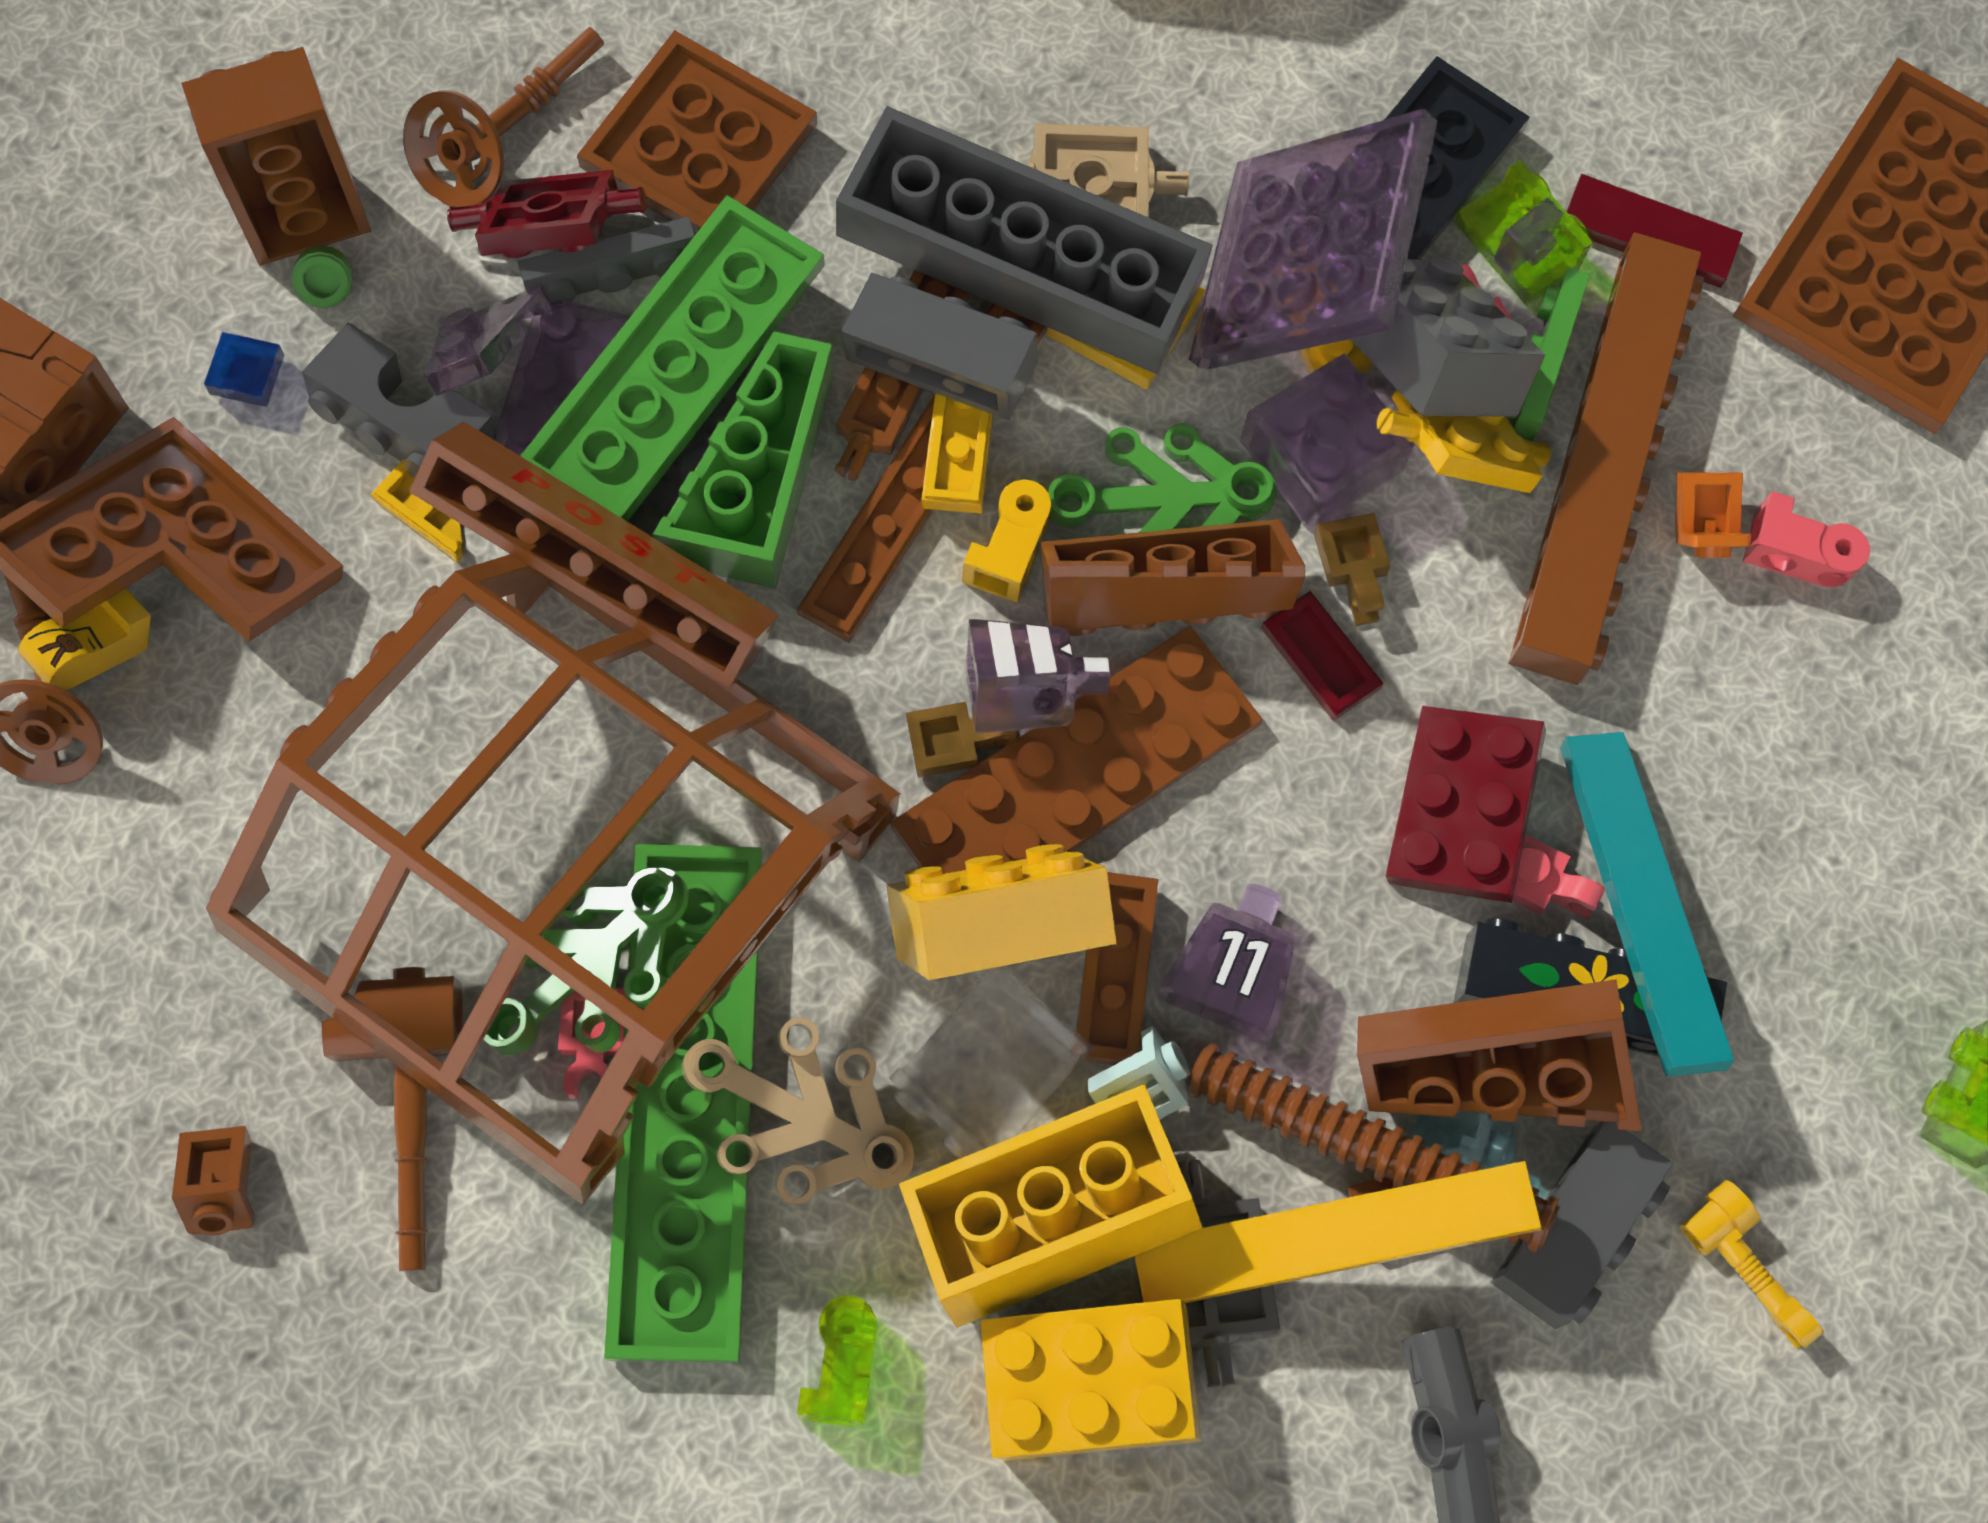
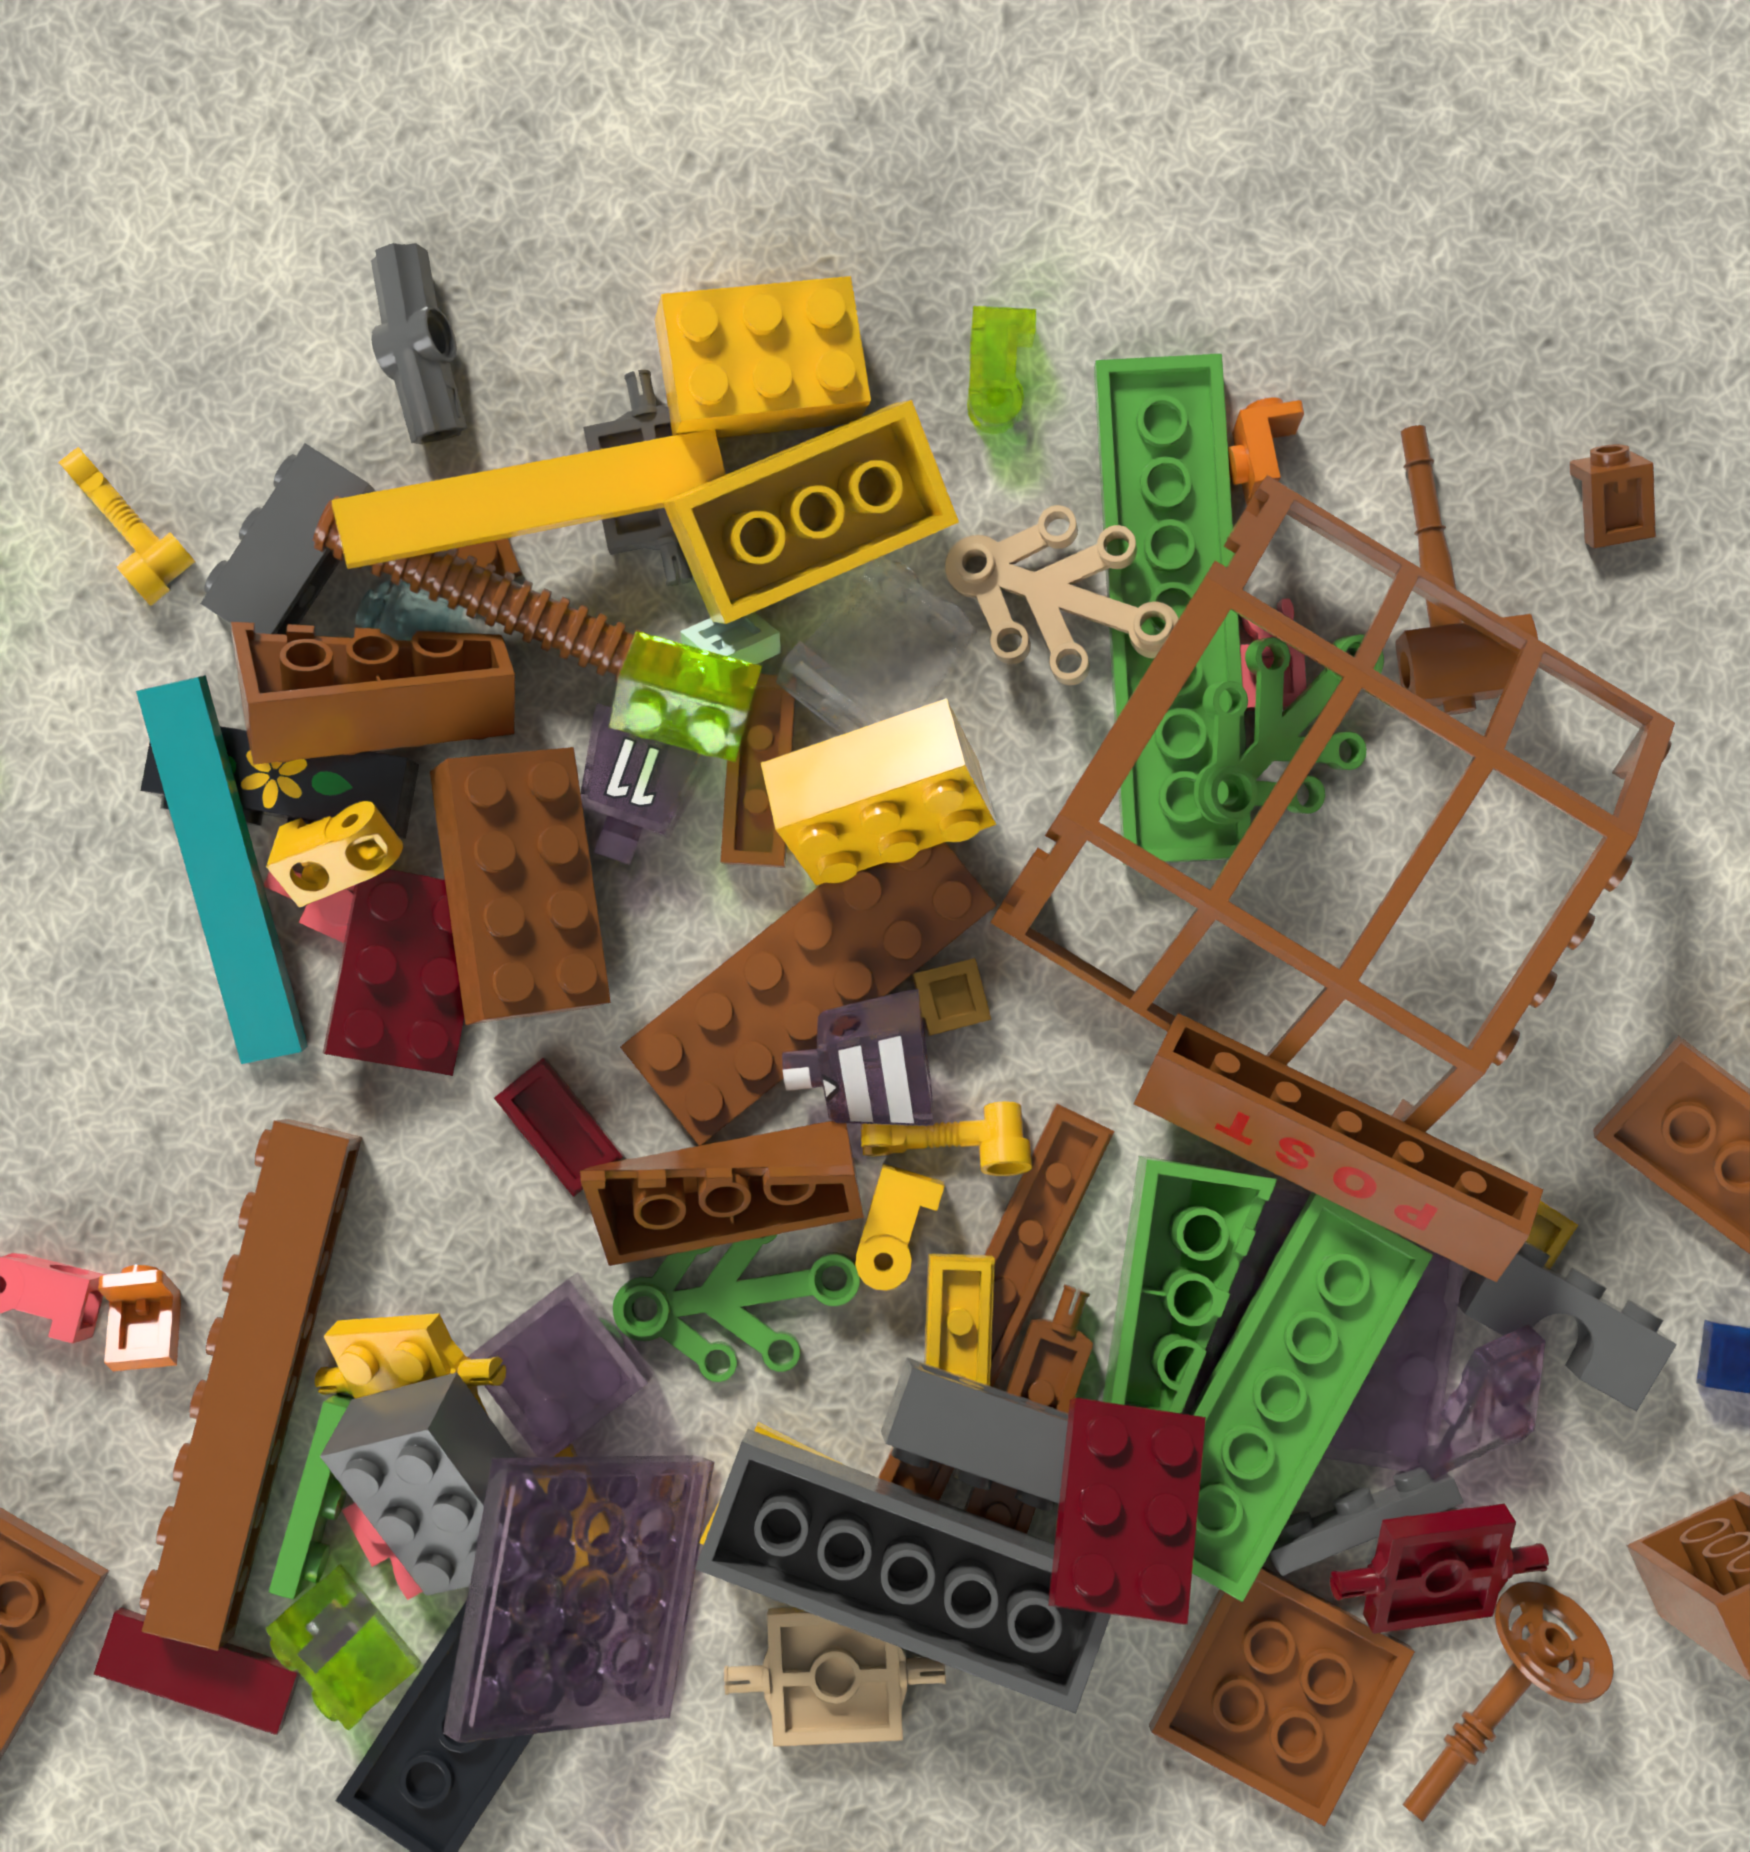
camera: 175 degrees left, 15 degrees up
(322, 276) = (1671, 1476): bright green tile -> none
(585, 1243) = (1253, 448): none -> orange bracket
(824, 258) = (1127, 1511): none -> dark red plate
(908, 610) = (998, 1136): none -> yellow brick
(1187, 1019) = (684, 696): none -> clear neon green brick
(1355, 556) = (528, 1239): pearl gold plate -> none
(1355, 864) = (519, 884): none -> dark orange brick
(1537, 900) = (333, 852): none -> yellow leg

